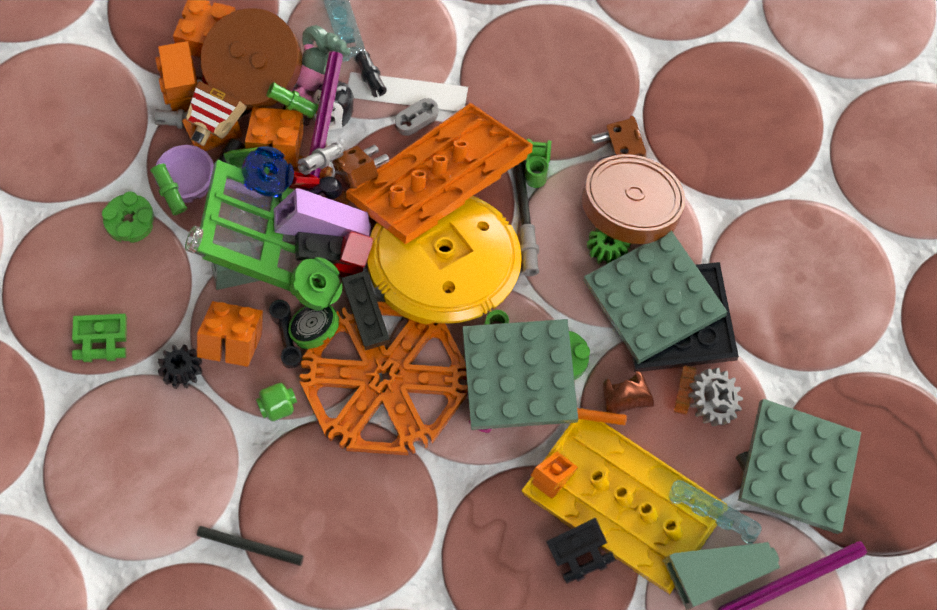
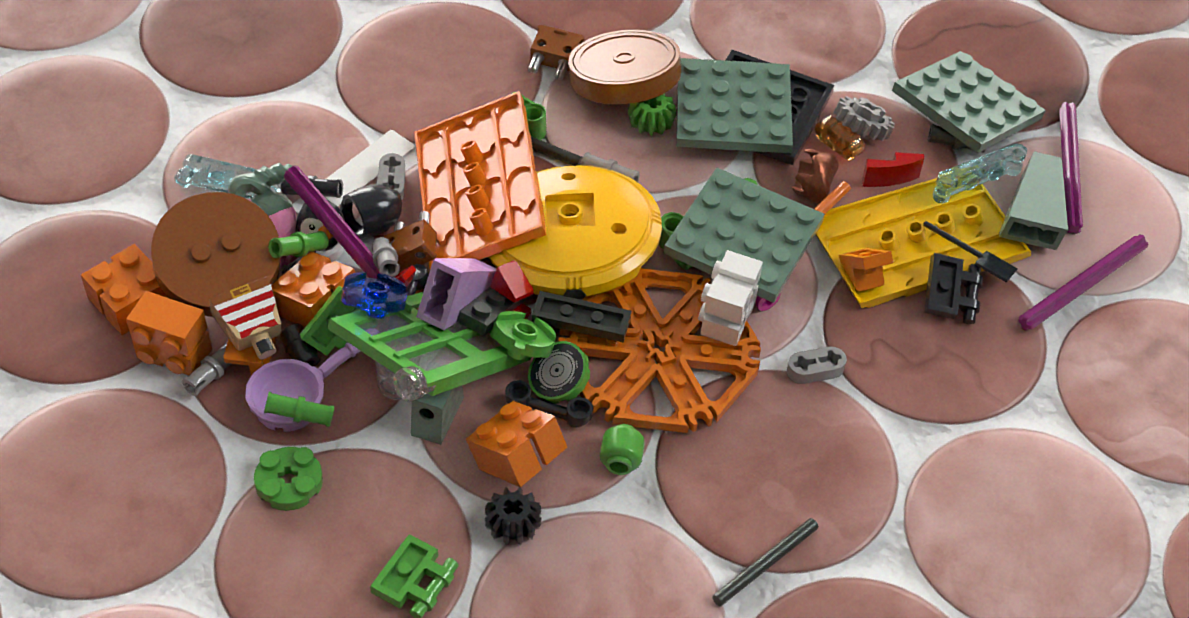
camera: 60 degrees left, 15 degrees down
(371, 123) = (378, 209): none -> black piece
(440, 396) = (729, 297): none -> white brick
(448, 486) = (816, 365): none -> light grey beam
(625, 568) = (986, 260): none -> black piece
(682, 451) = (902, 169): none -> red slope

